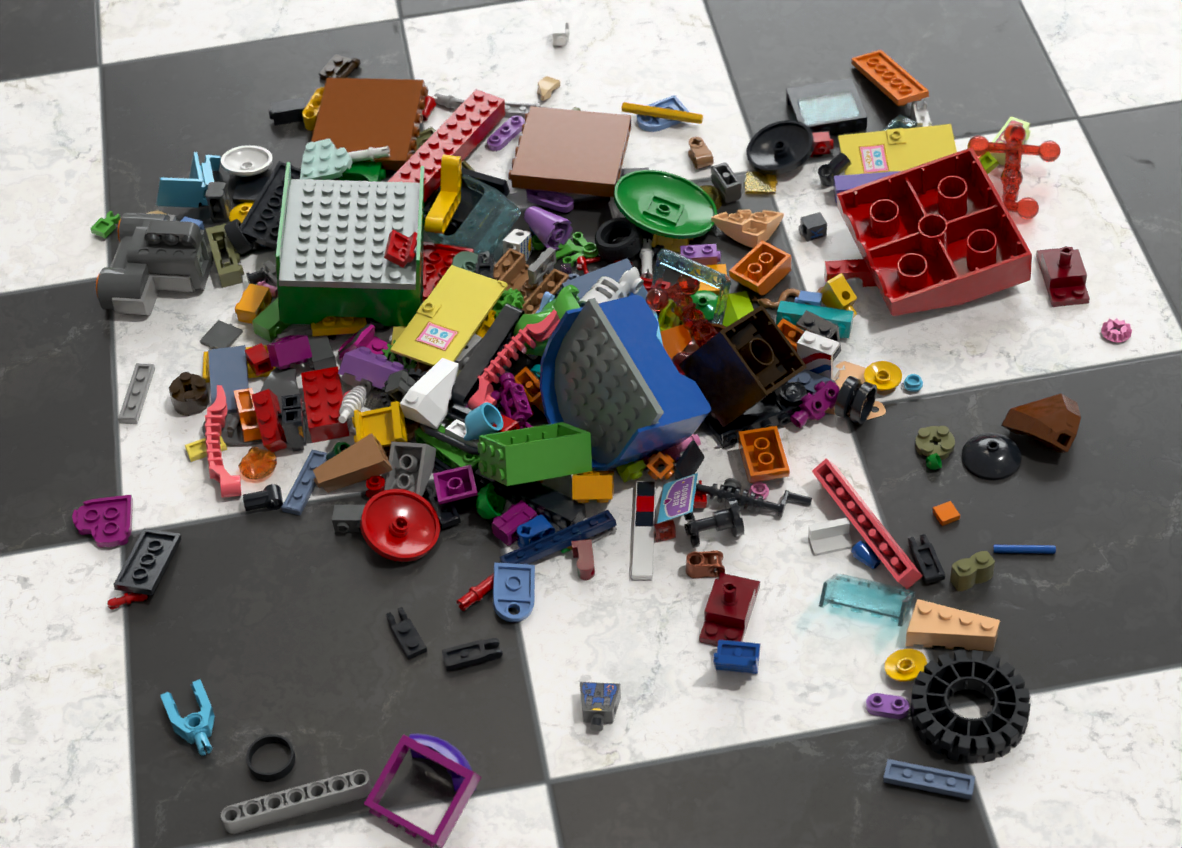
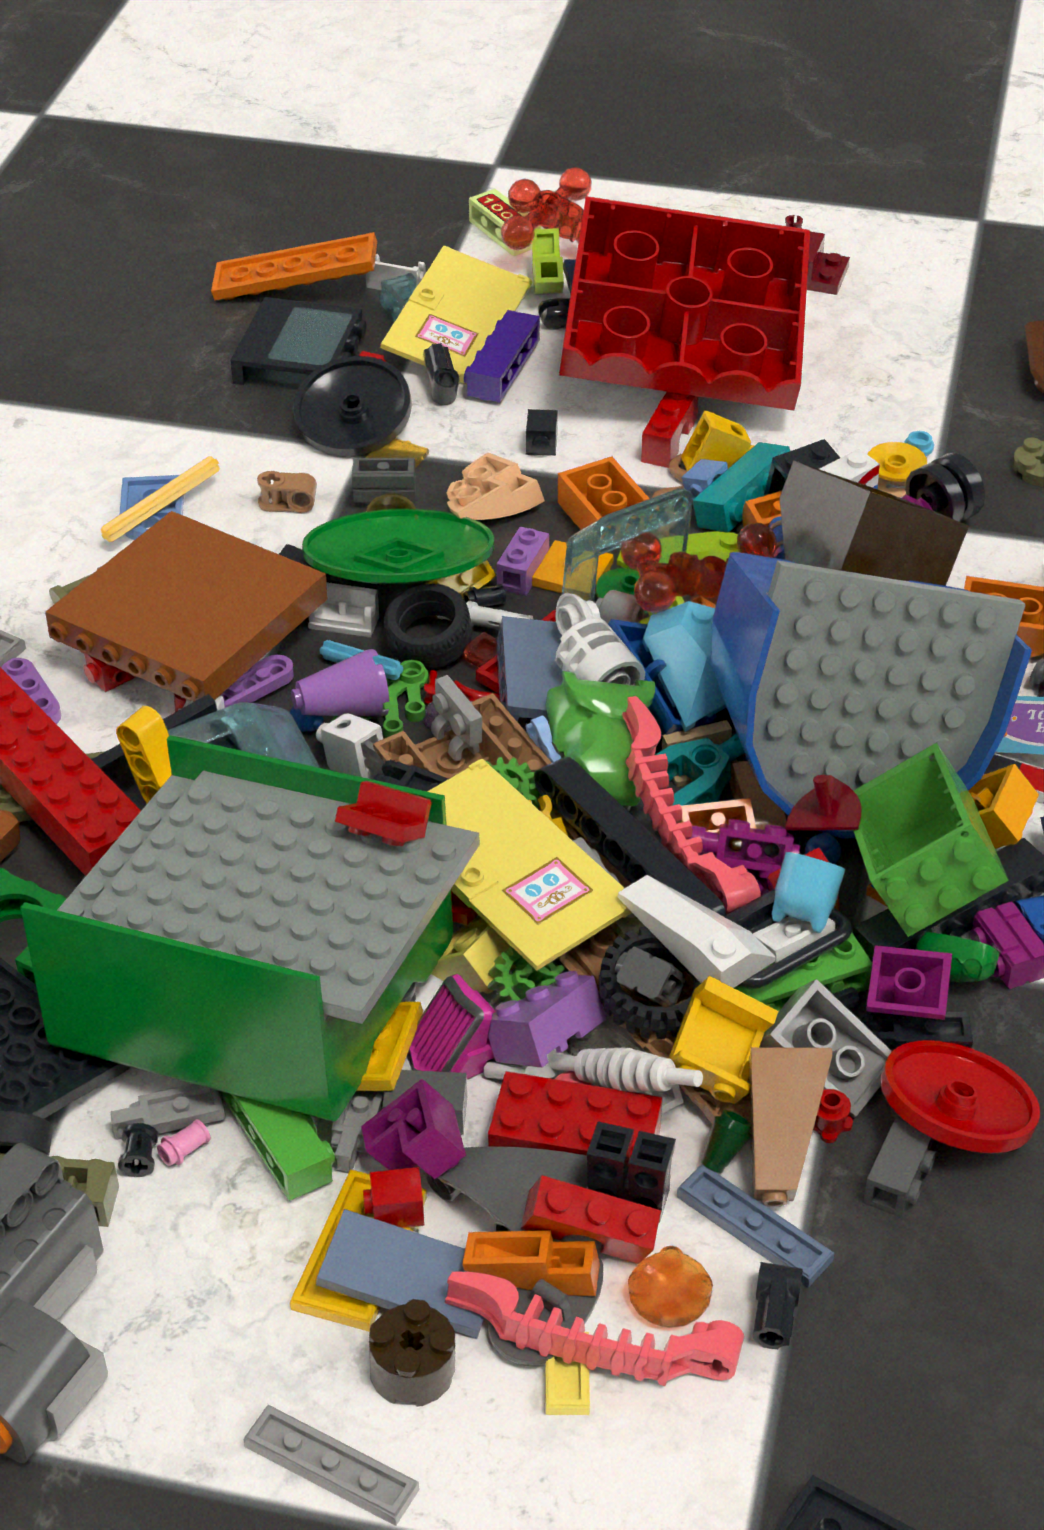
camera: 70 degrees left, 5 degrees down
(221, 335) = (255, 1263): dark grey piece -> none
(253, 302) = (214, 1175): light orange brick -> none
(543, 415) = (826, 807): none -> dark red shield
(586, 228) = (338, 652): none -> medium azure axle
(1115, 335) = (908, 258): bright pink gear -> none

